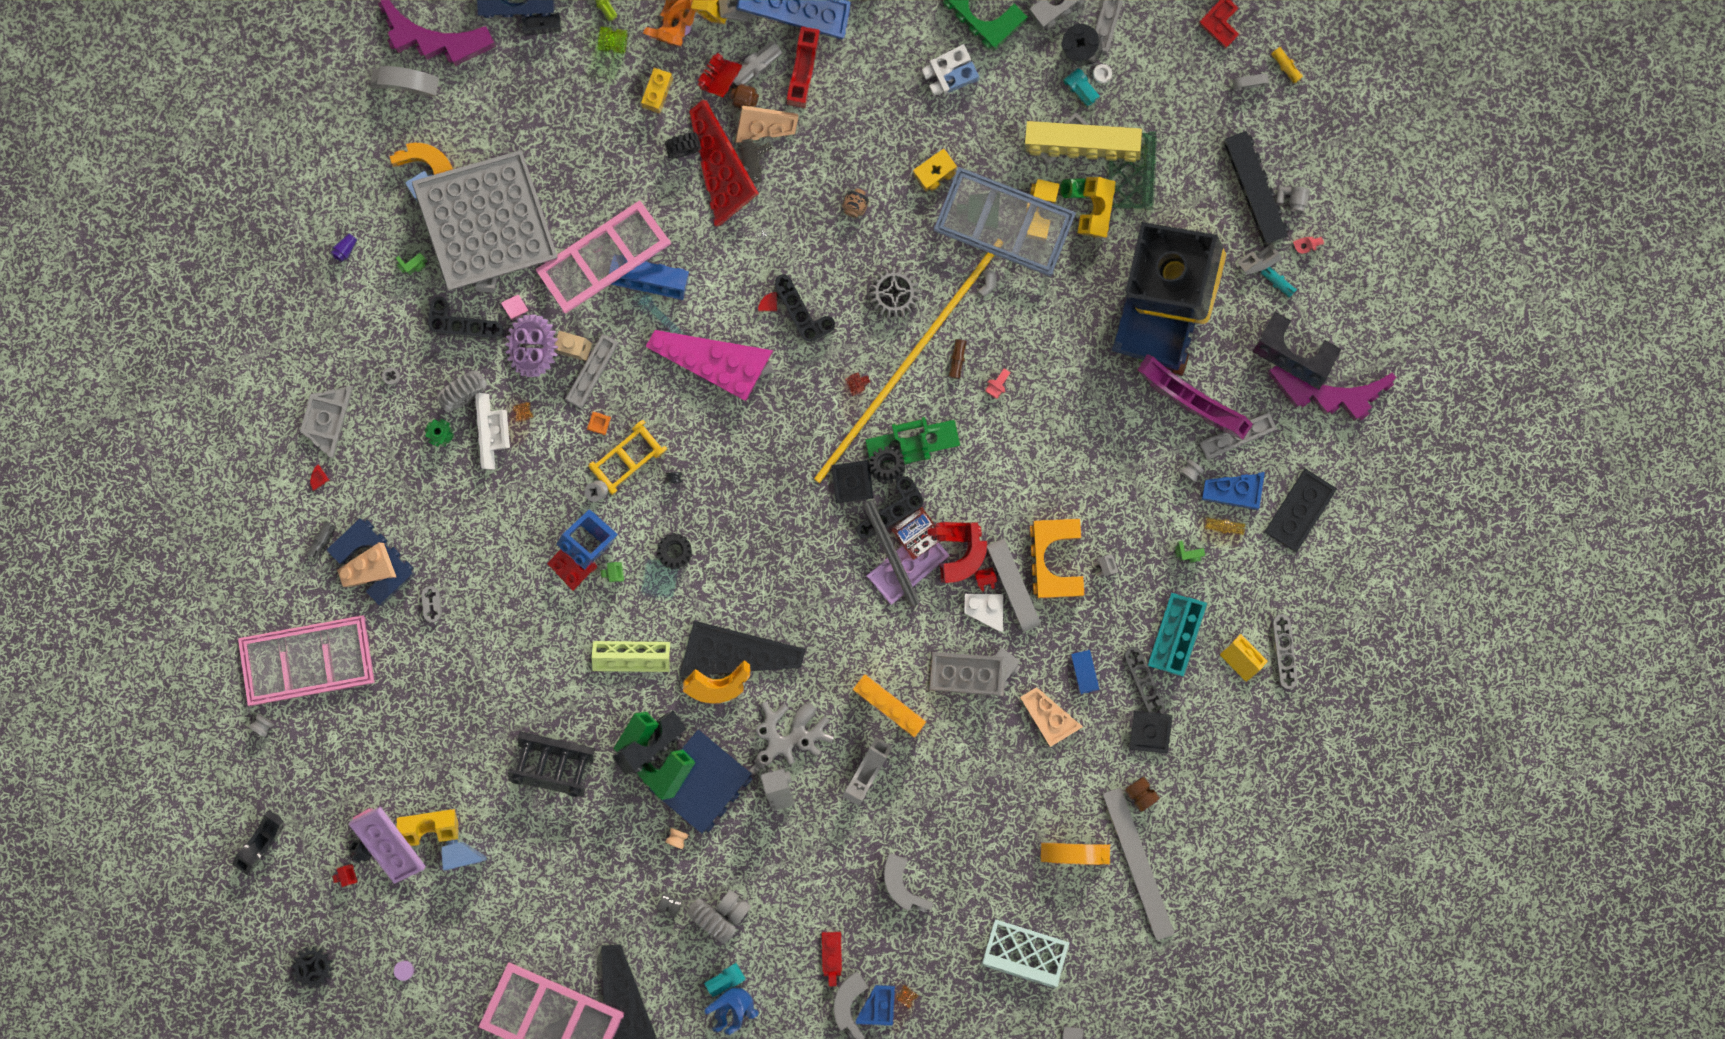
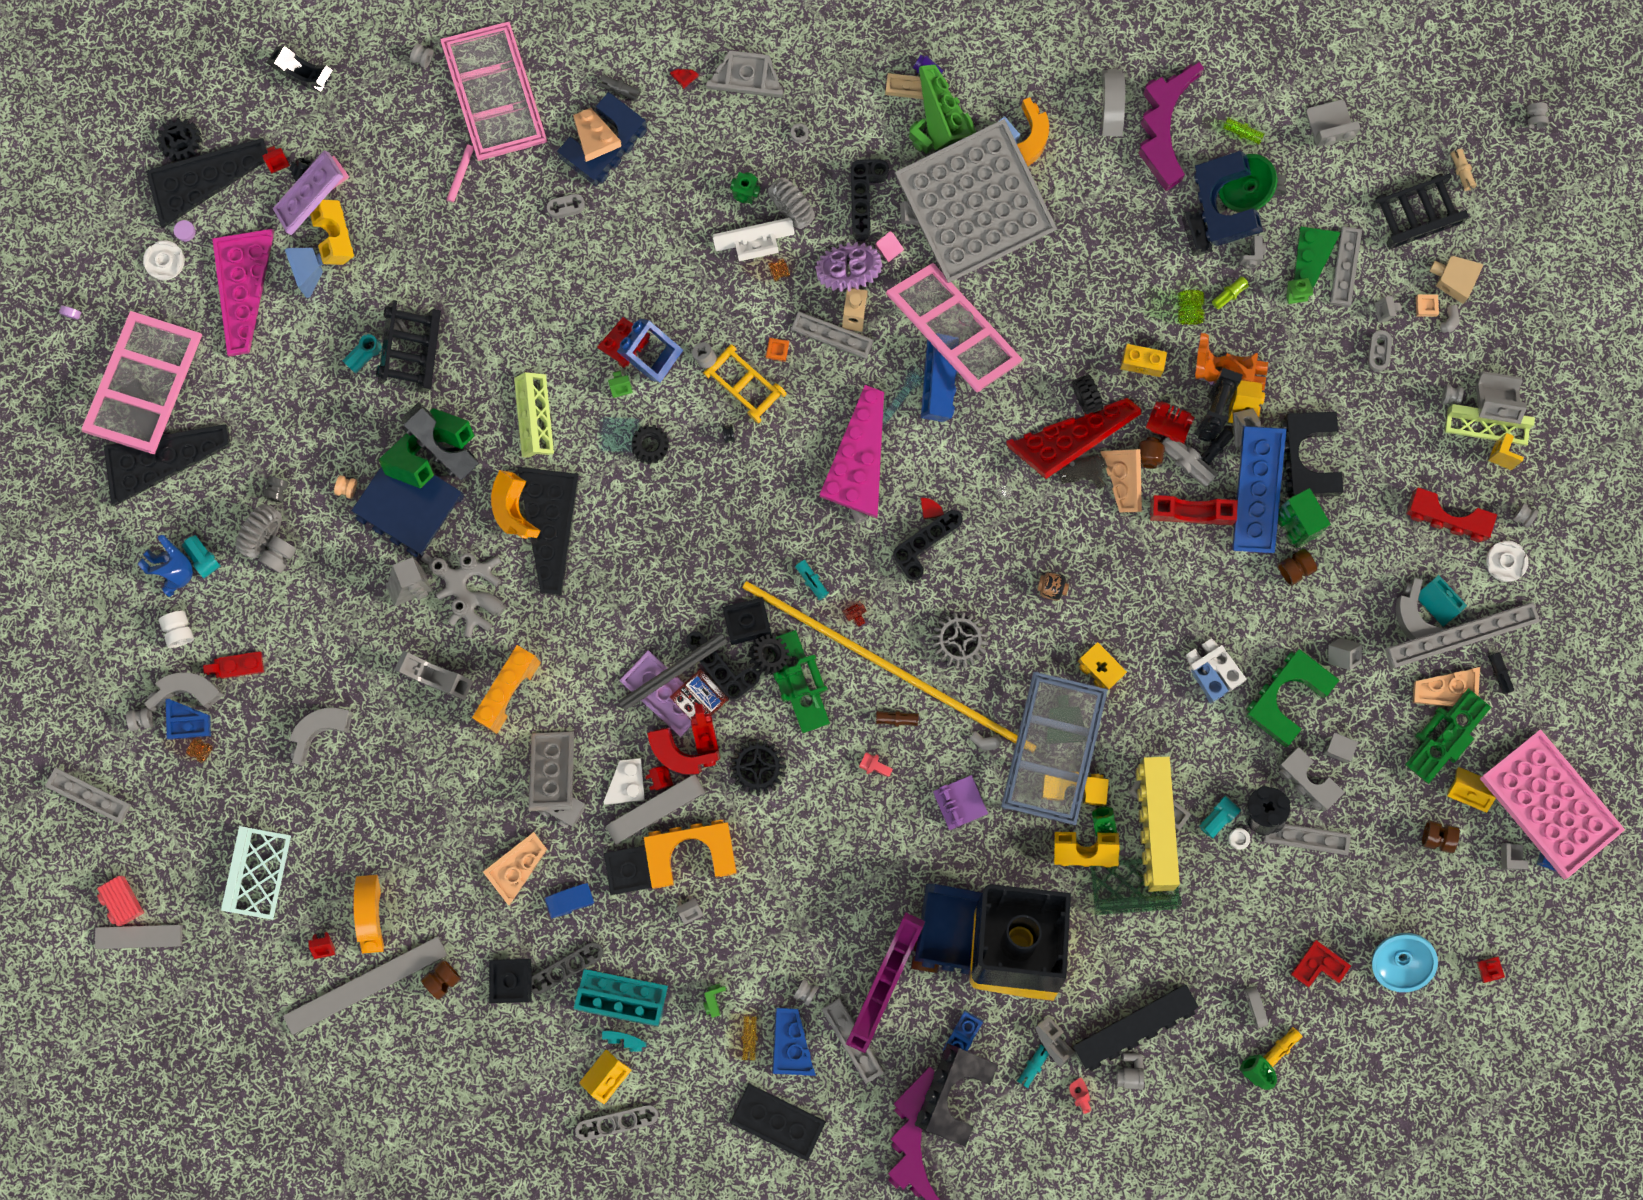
camera: 85 degrees right, 5 degrees down
(355, 957) = (192, 181): none -> black wing
(361, 261) = (904, 86): none -> tan plate
(384, 701) = (460, 173): none -> bright pink bar
(397, 238) = (943, 115): none -> bright green wedge
(429, 987) = (169, 263): none -> white tile
(457, 919) = (241, 275): none -> dark pink wing
(552, 812) = (360, 354): none -> teal piece
(702, 24) = (1220, 393): none -> black fence
(745, 37) = (1217, 446): none -> black axle
(791, 1008) = (176, 629): none -> white wheel
(809, 425) = (820, 591): none -> teal pin
(984, 505) = (767, 767): none -> black gear
(1040, 313) = (960, 802): none -> medium lavender hinge
(1064, 616) = (627, 870): none -> black plate
(1100, 899) = (321, 947): none -> red tile
(1215, 631) = (630, 1041): none -> teal slope
(1242, 337) = (965, 1031): none -> blue slope
(1306, 88) = (1259, 1072): none -> green rock

